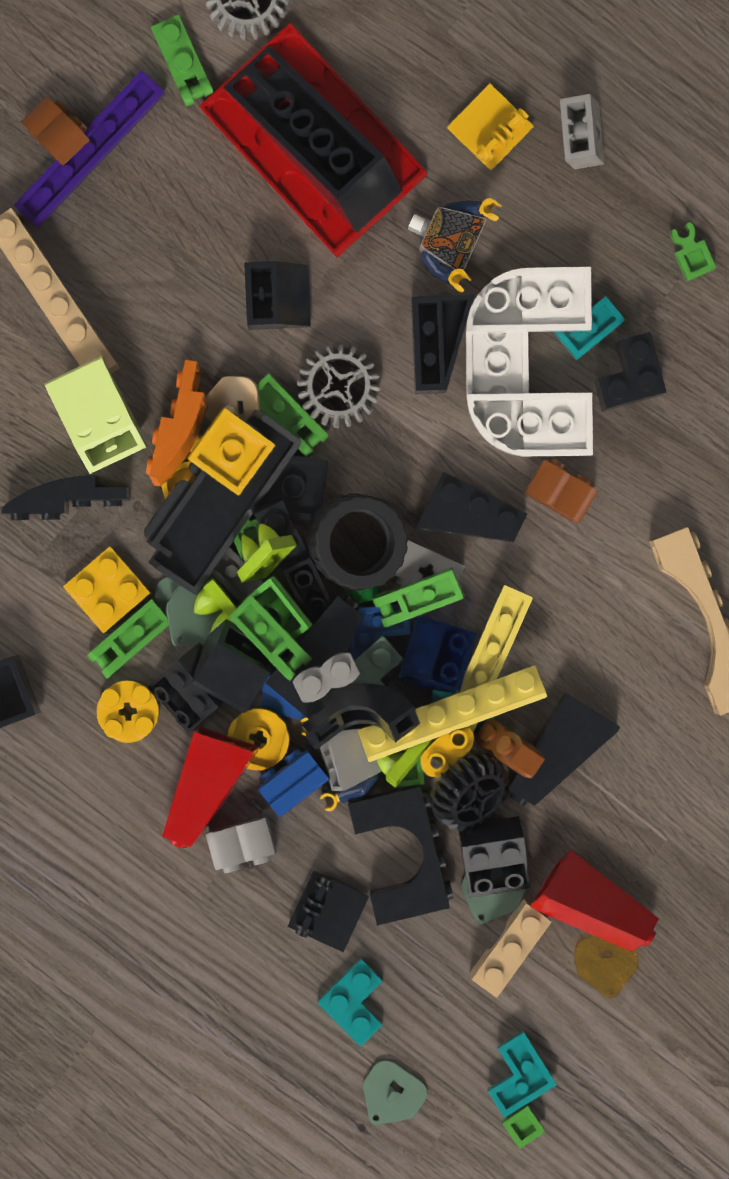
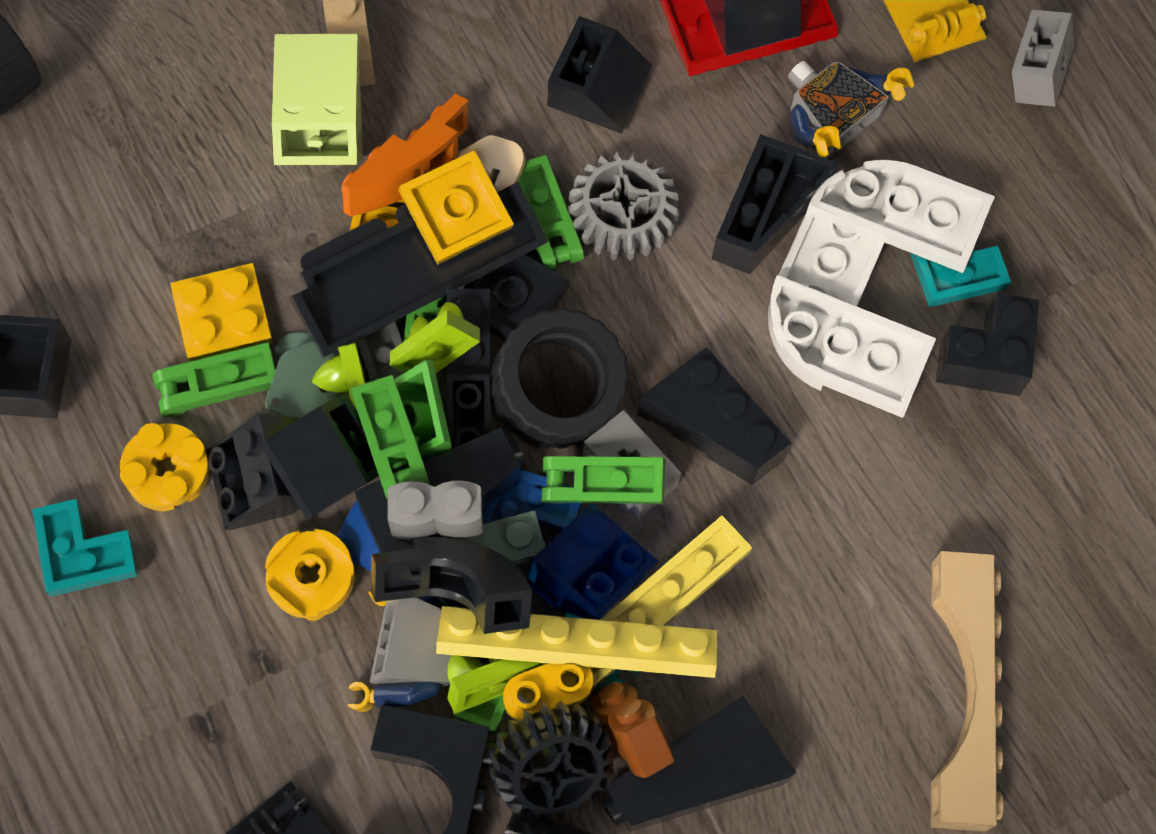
camera: 25 degrees right, 20 degrees down
(53, 497) = (219, 177): black slope -> none
(102, 800) = (72, 560): none -> teal plate
(207, 778) = (208, 594): red slope -> none
(241, 843) = (215, 697): light grey brick -> none
(293, 781) = (324, 647): blue brick -> none
(364, 595) = (534, 454): green tile -> none
(561, 491) = (844, 444): dark orange brick -> none
(693, 257) = (1123, 252): bright green plate -> none

